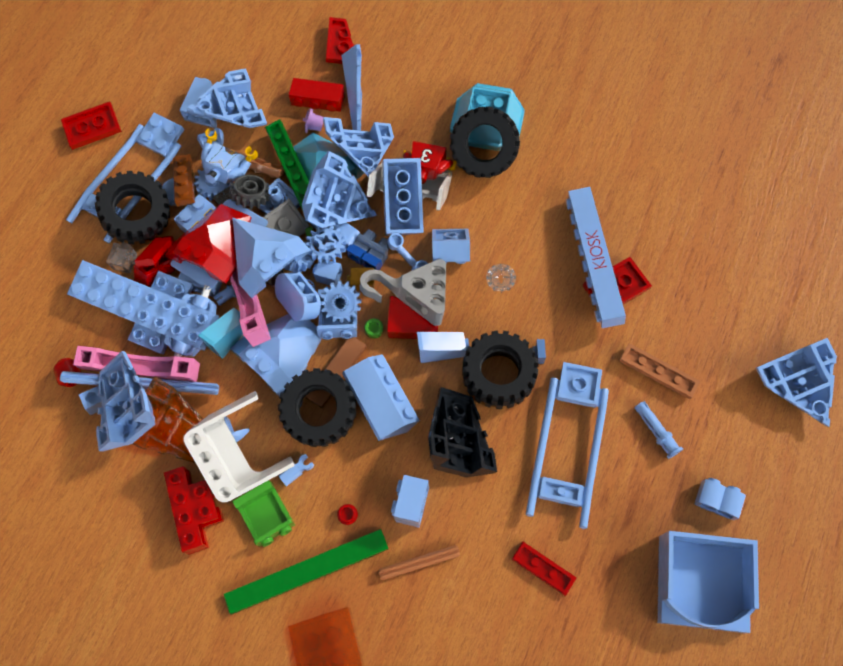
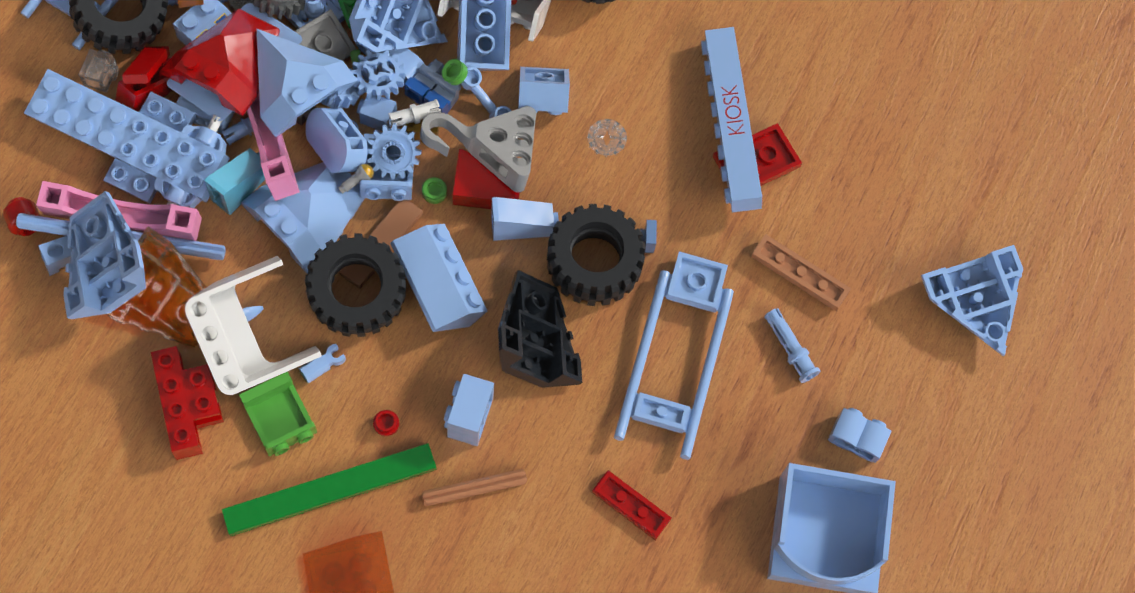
camera: 10 degrees left, 0 degrees up
(319, 319) = (363, 172): none -> light grey piece
(354, 271) = (414, 113): none -> white pin
(382, 237) = (454, 72): none -> bright green tile

